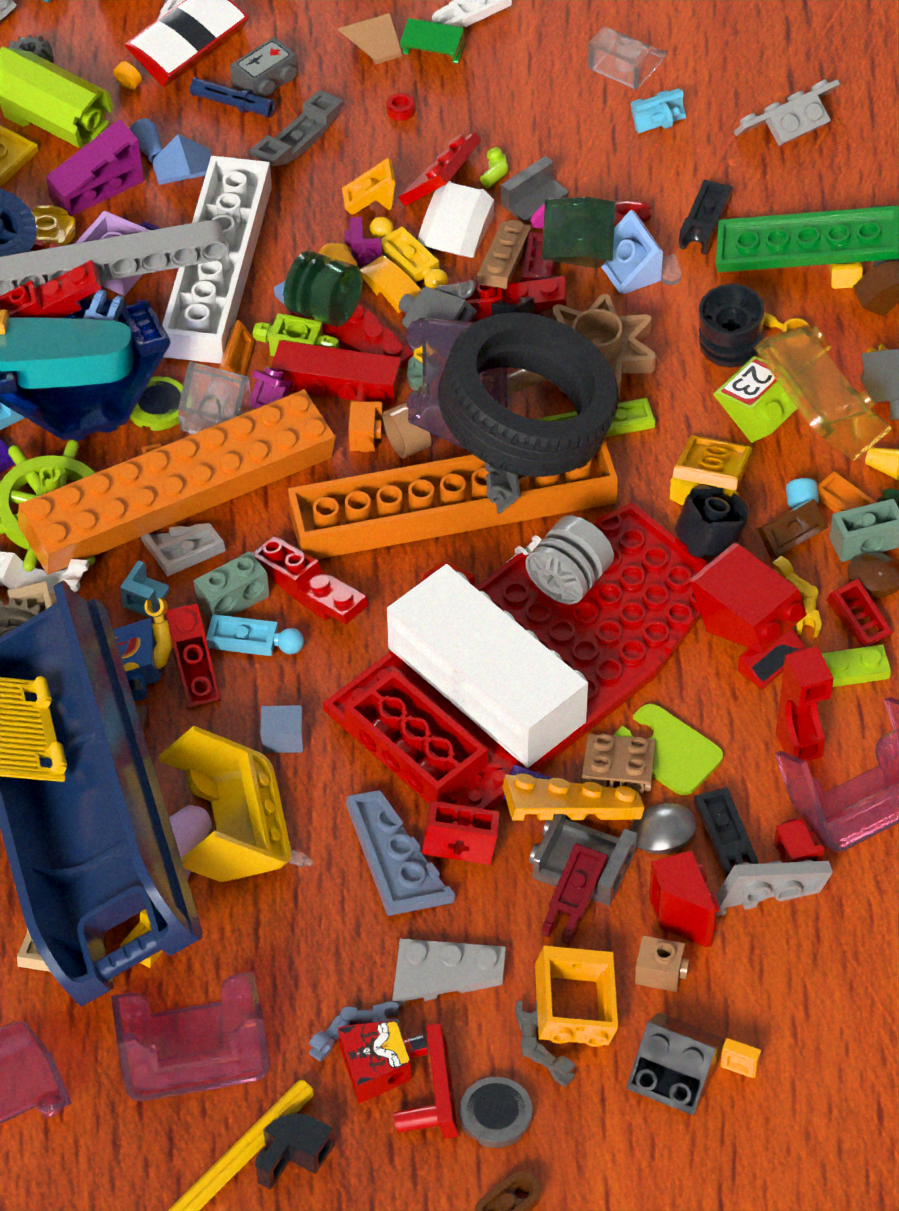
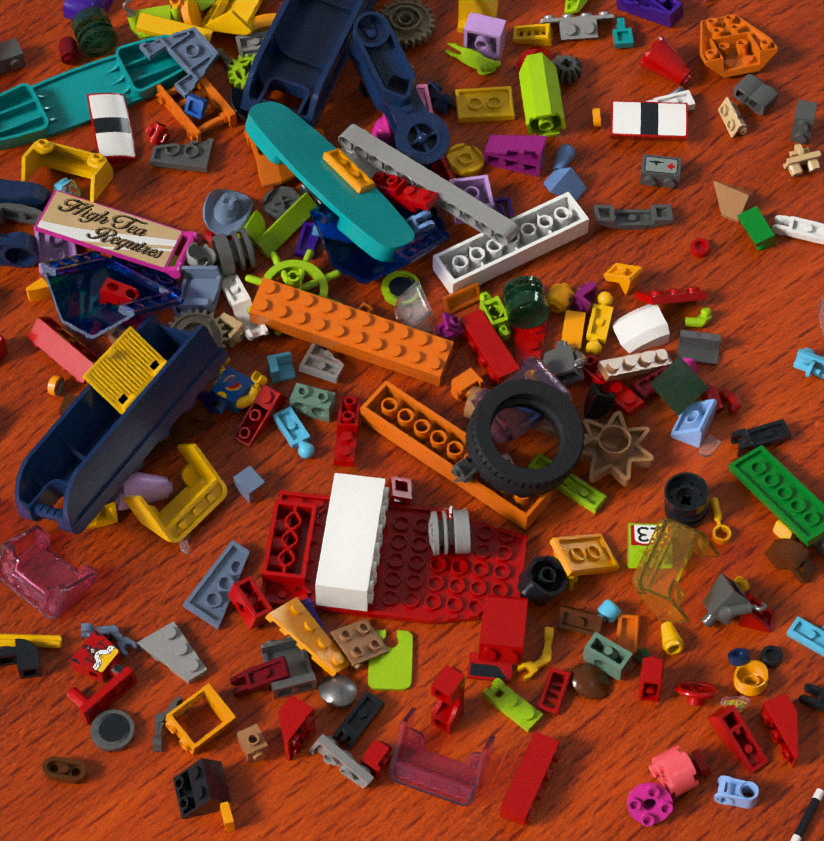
camera: 50 degrees right, 5 degrees up
(240, 99) = (631, 177): dark blue pin -> none

